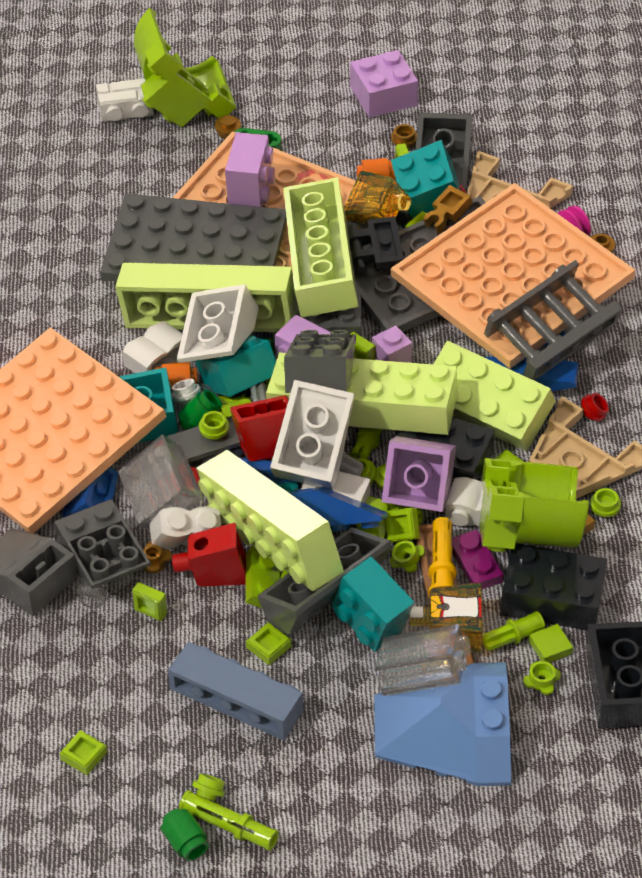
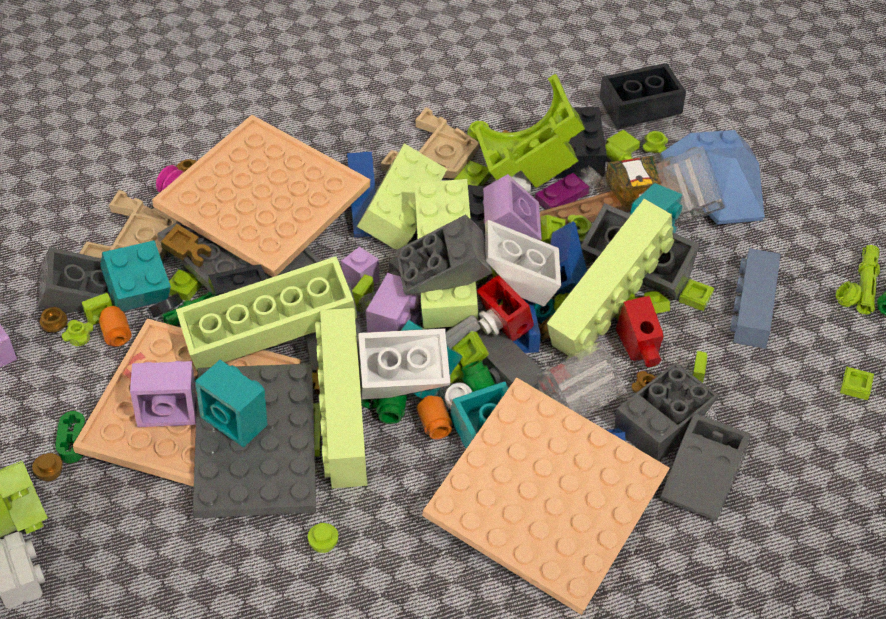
camera: 105 degrees left, 0 degrees up
(76, 285) = (323, 537): none -> lime plate
(155, 348) = (405, 440): white brick -> none
(175, 524) = (626, 353): white brick -> none
(207, 203) = (232, 402): none -> teal brick
(213, 425) = (506, 354): lime plate -> none
(375, 198) = (172, 295): clear yellow torso -> none
(381, 149) = (77, 333): none -> lime plate
(442, 570) = (594, 194): yellow pin -> none
(495, 588) = (590, 177): none -> clear plate
(558, 347) = (334, 141): dark grey fence -> none
(595, 406) = (383, 147): red plate -> none

